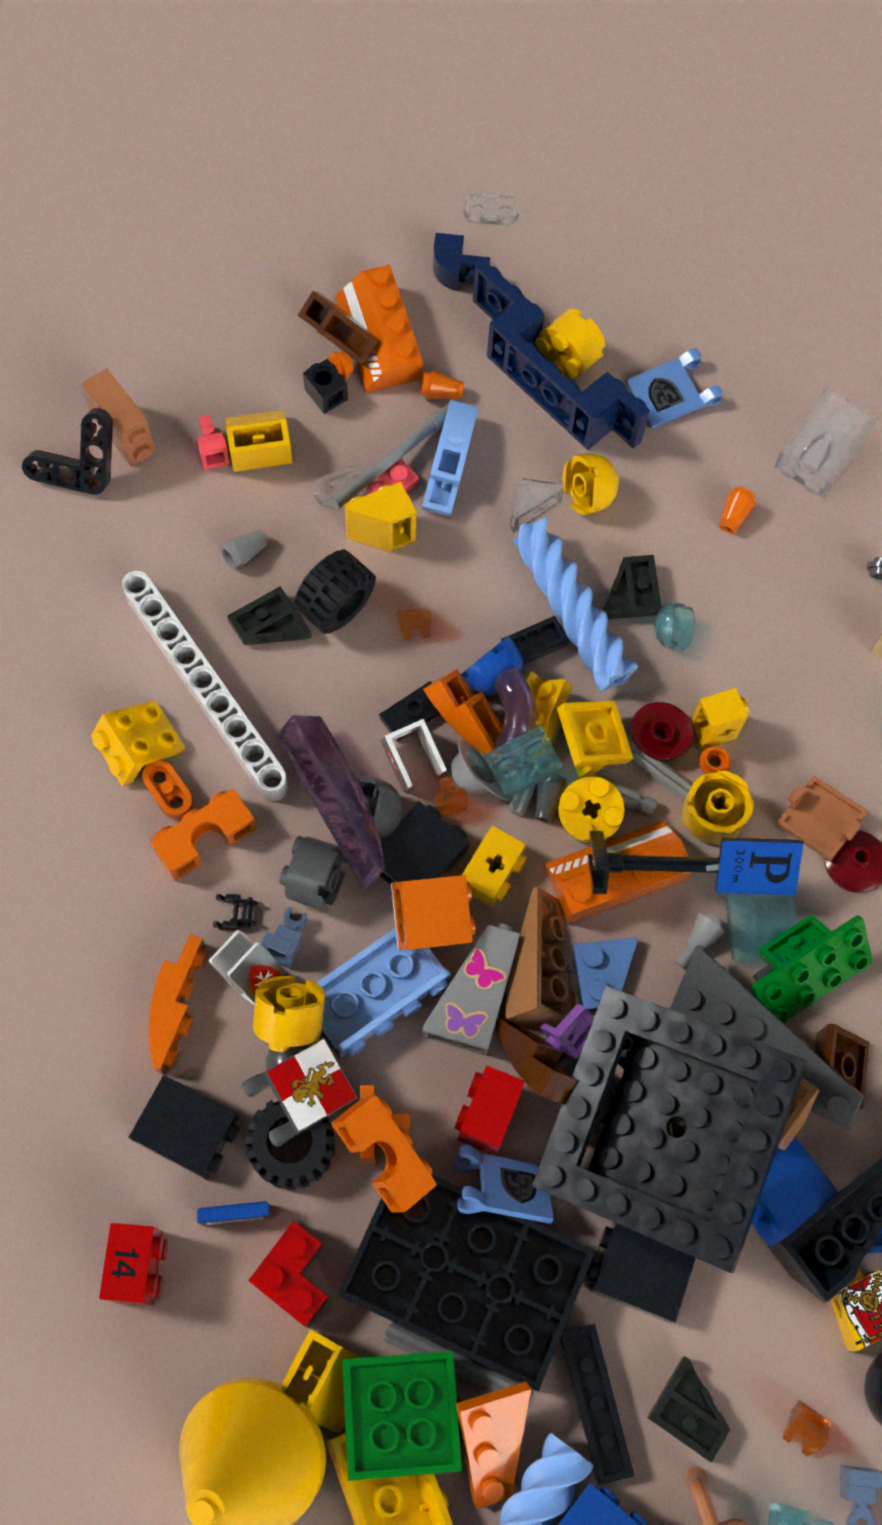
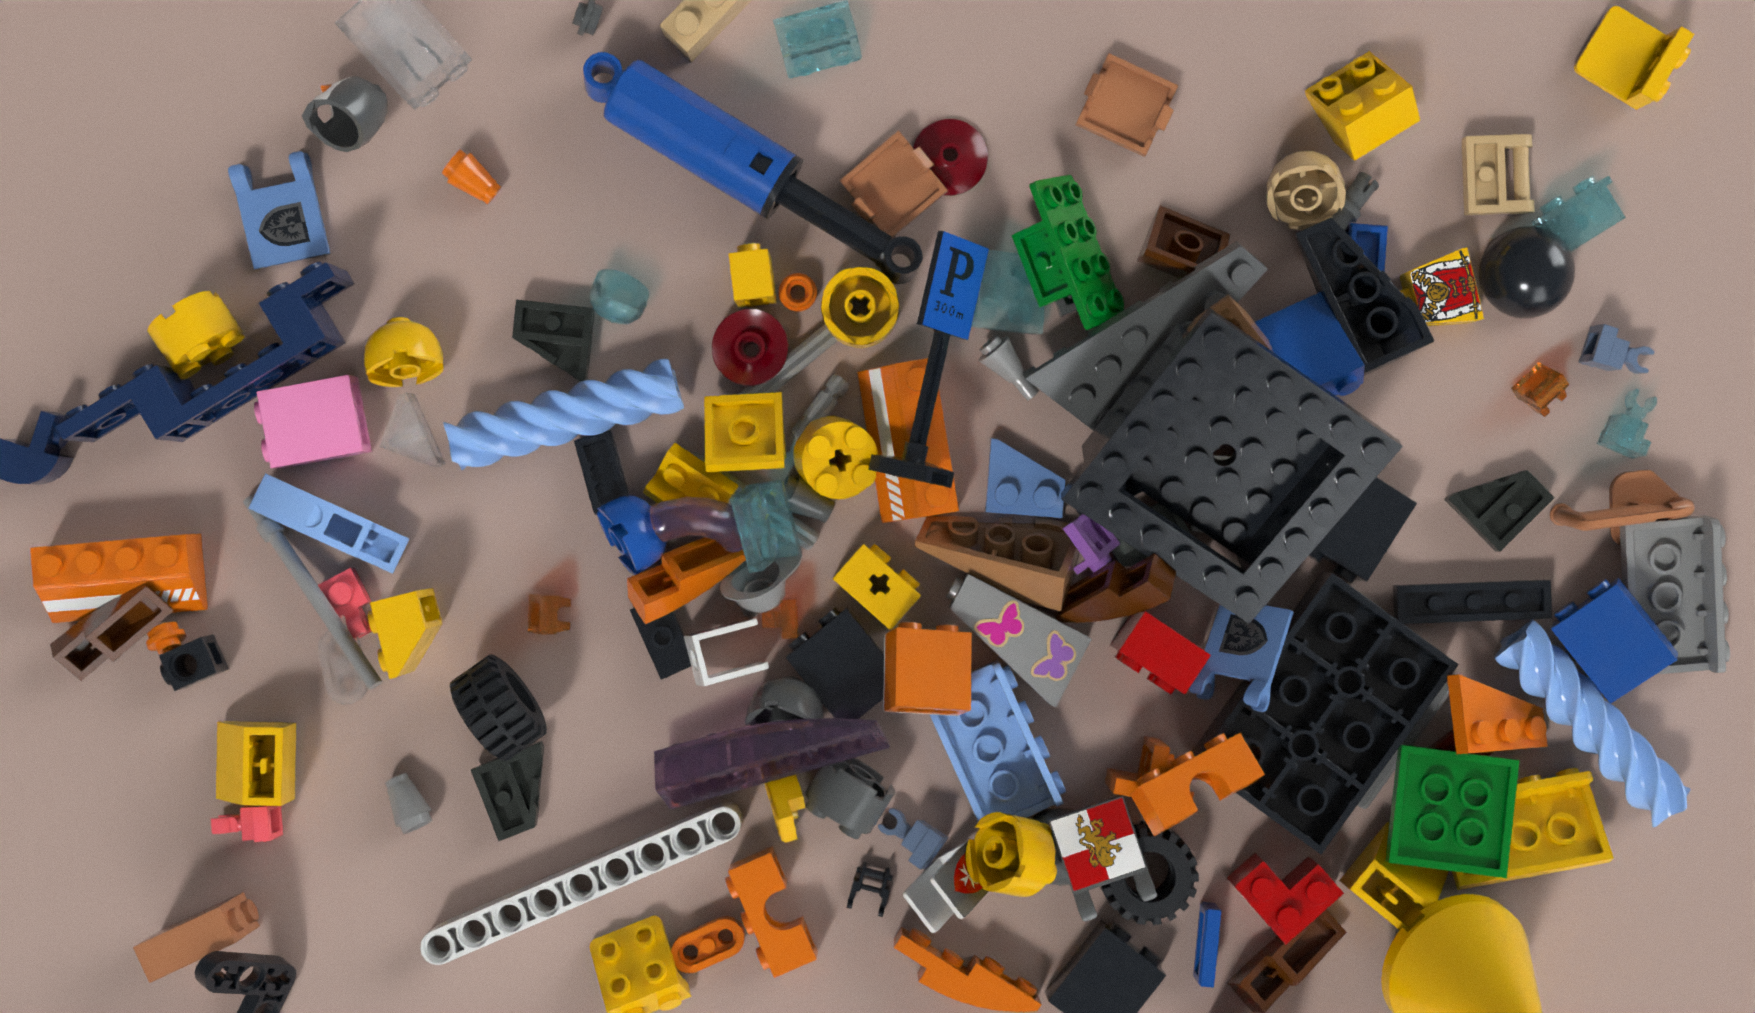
camera: 70 degrees left, 20 degrees up
(233, 1293) = (1282, 965): none -> reddish brown slope
(295, 822) = (785, 800): none -> yellow plate
(439, 386) = (221, 513): orange cone -> none
(524, 434) = (312, 422): none -> bright pink brick
(764, 424) = (356, 115): none -> dark grey piece
(808, 688) = (732, 156): none -> blue piece

